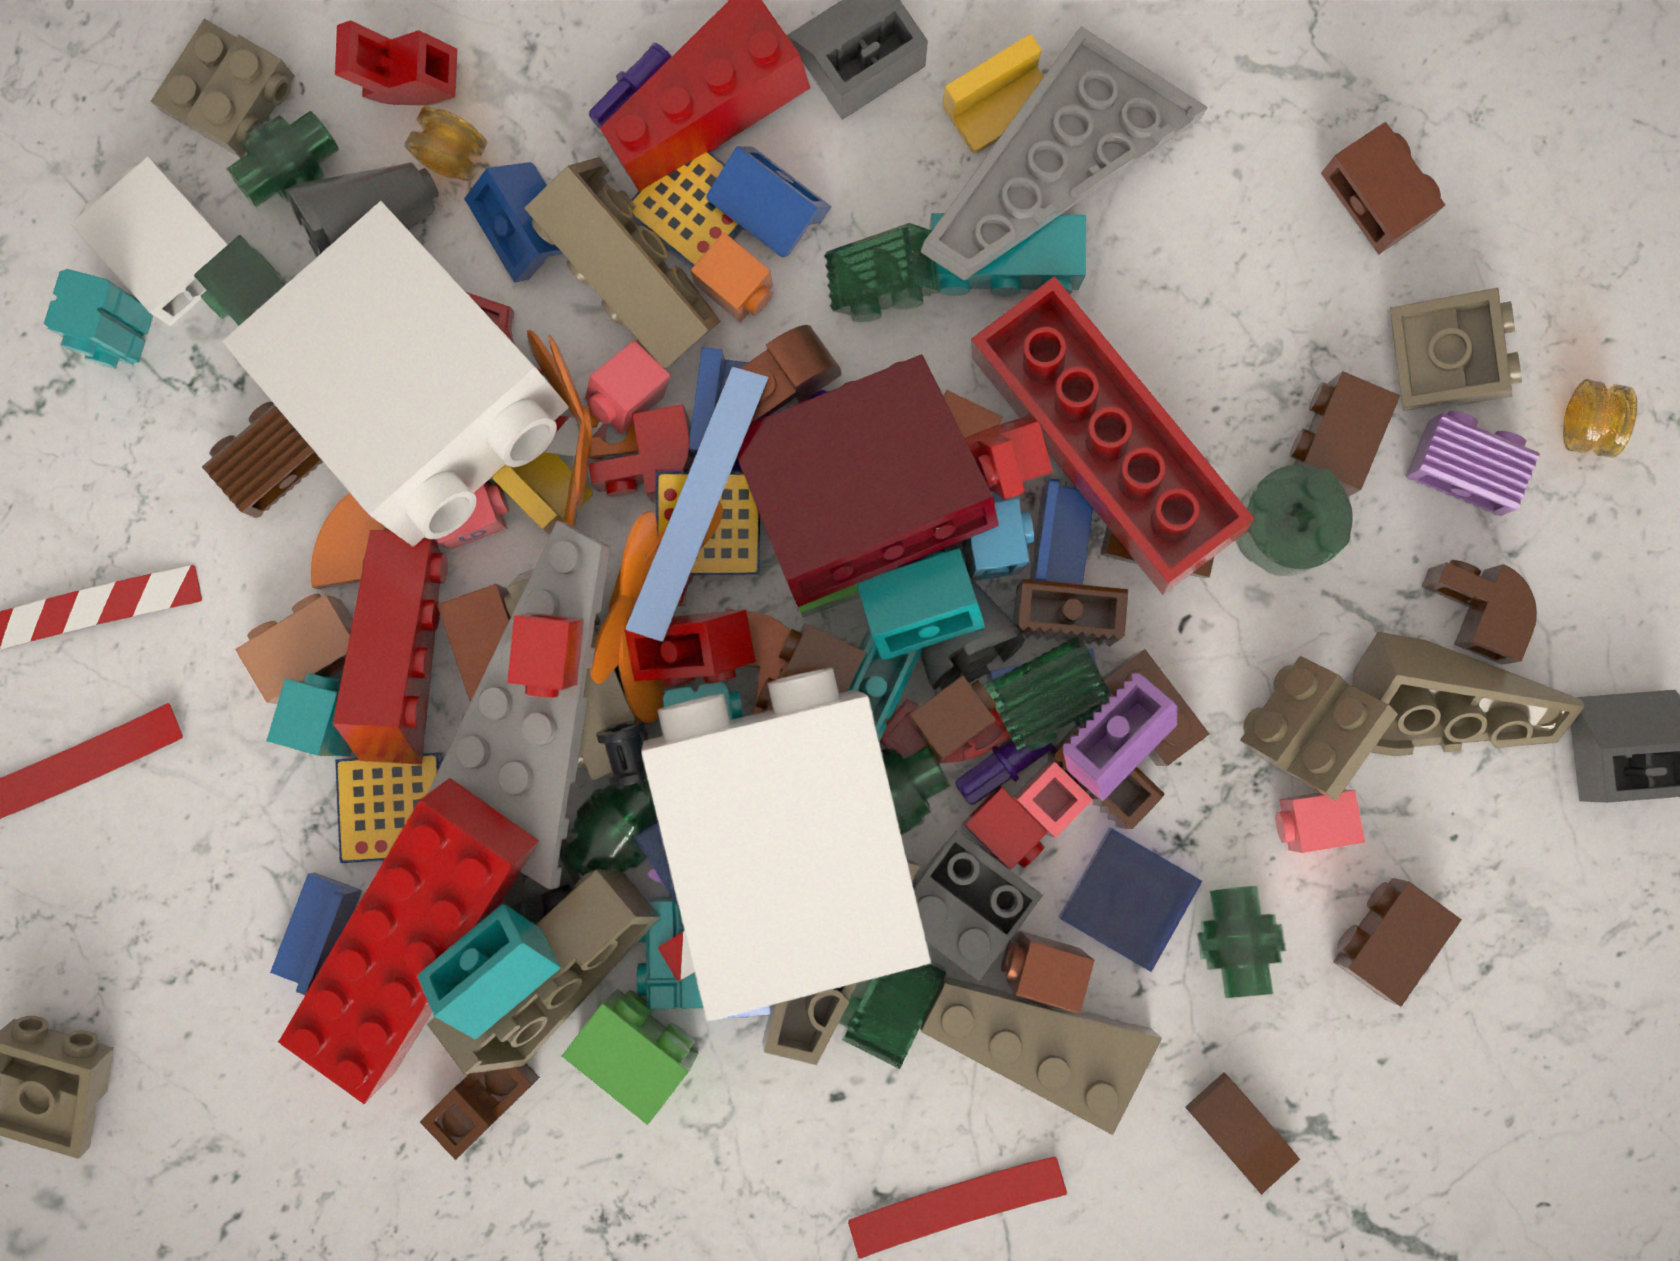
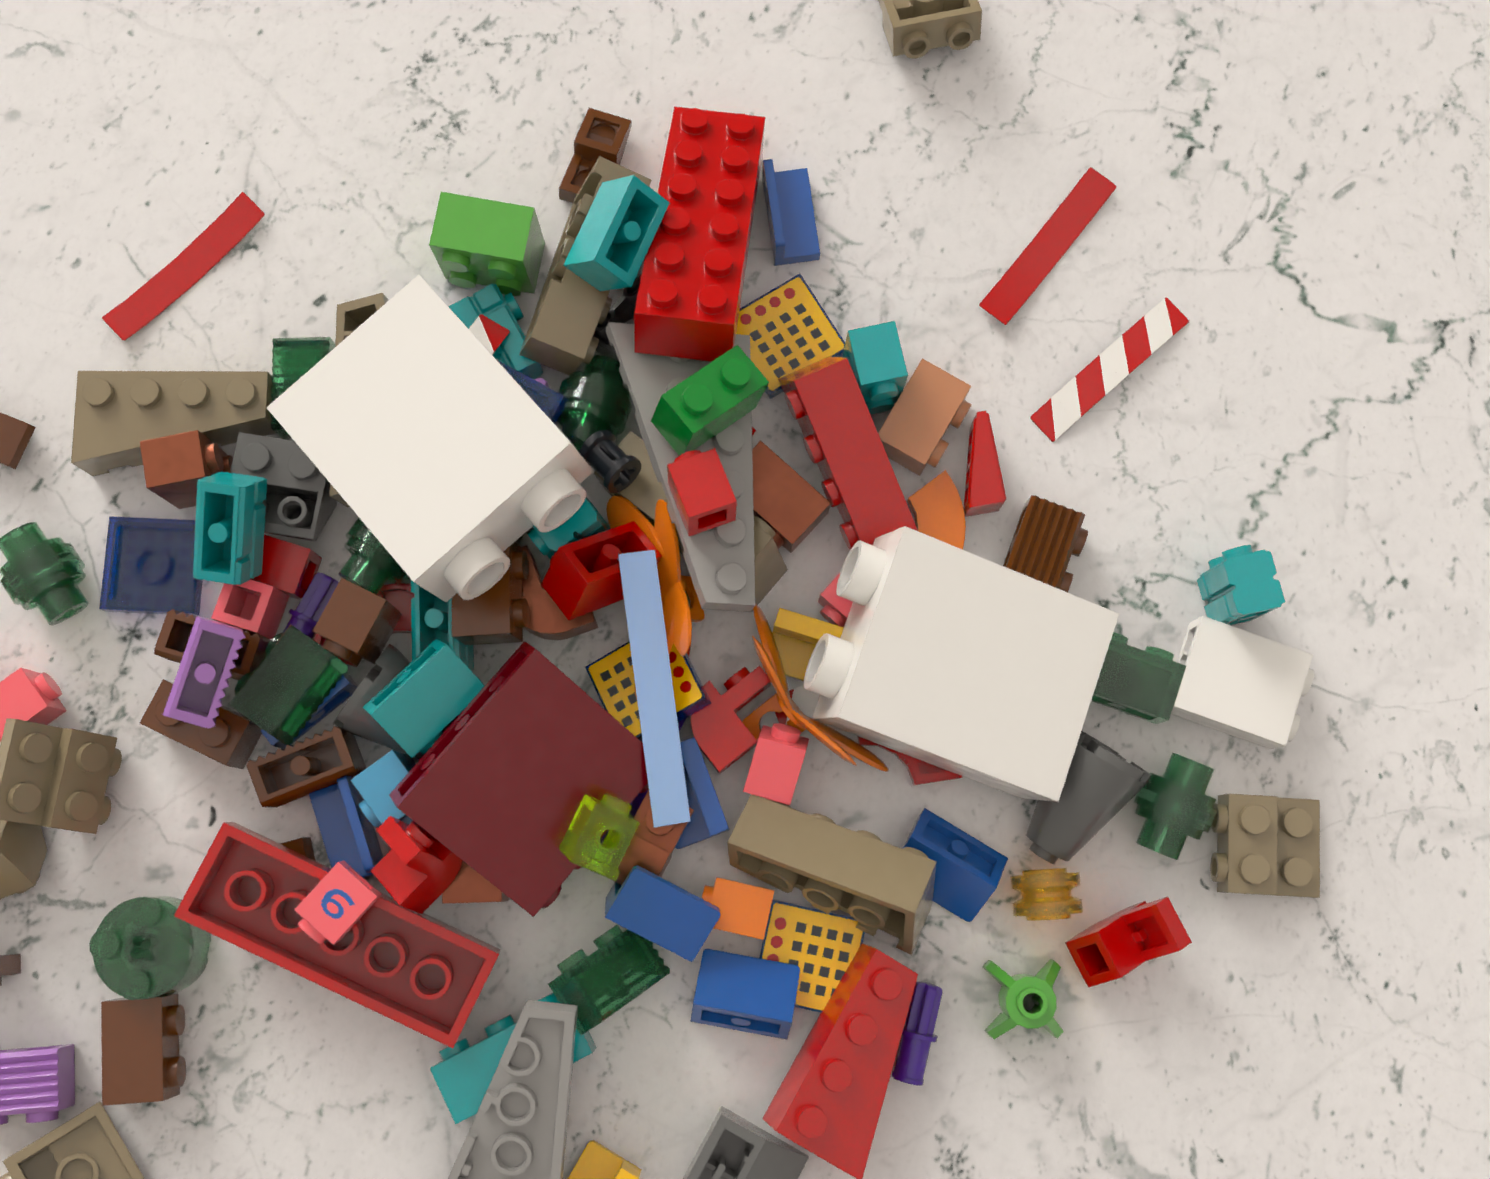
camera: 145 degrees right, 5 degrees down
(275, 565) = (983, 475): none -> red slope
(489, 741) = (709, 401): none -> green brick
(519, 65) = (1012, 996): none -> bright green brick
(804, 302) = (661, 912): none -> blue panel
(820, 389) = (582, 838): none -> clear neon green brick
(1030, 873) = (229, 528): none -> teal brick
(1095, 448) = (336, 904): none -> coral brick

